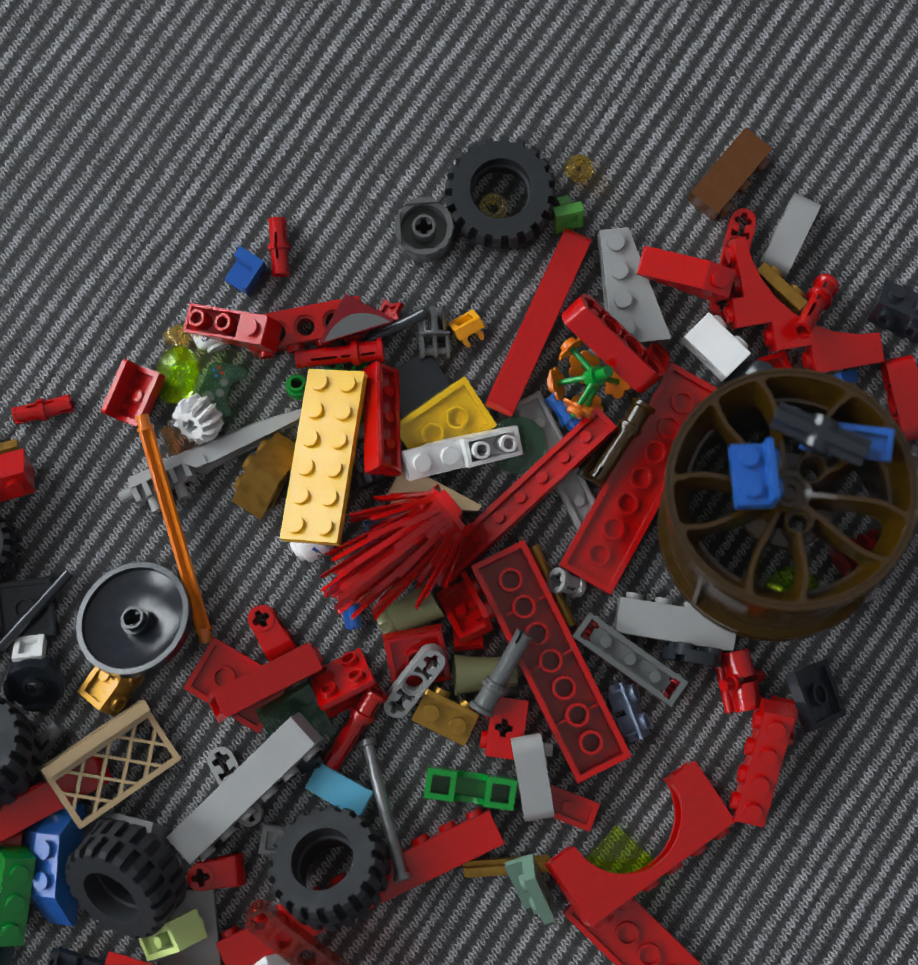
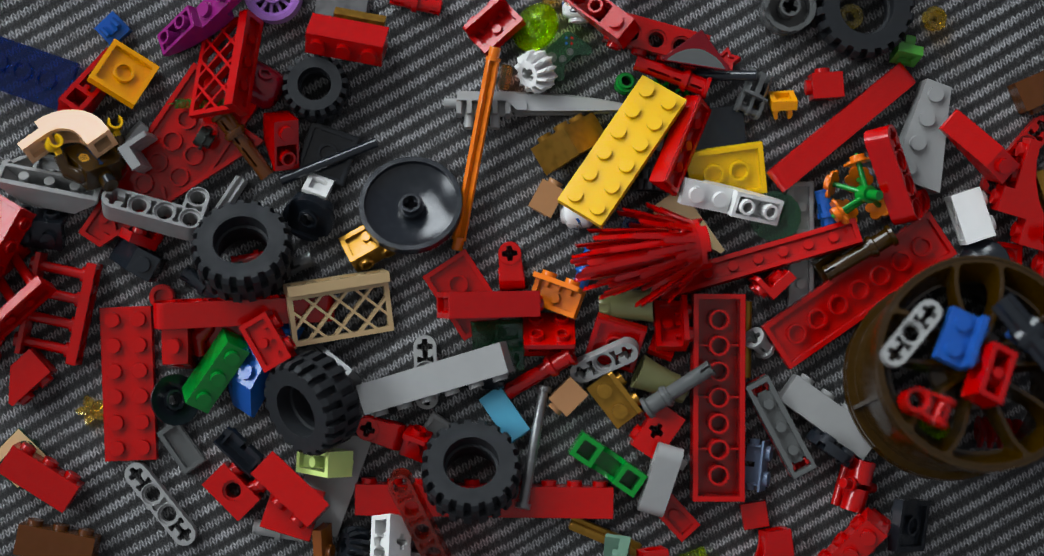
camera: 30 degrees right, 5 degrees up
(47, 835) = (268, 340): none -> red bracket
(256, 865) = (415, 442): none -> red bracket
(269, 545) = (546, 197): none -> medium nougat brick
(333, 637) = (558, 295): none -> orange bracket
(394, 739) = (566, 397): none -> medium nougat brick
(501, 288) = (824, 85): none -> red brick
(549, 511) = (774, 283): none -> red bracket
(651, 765) = (754, 514): none -> red tile
(715, 475) = (929, 323): none -> light grey beam
(762, 561) = (932, 407): none -> red piece
(804, 497) = (990, 377): none -> red brick

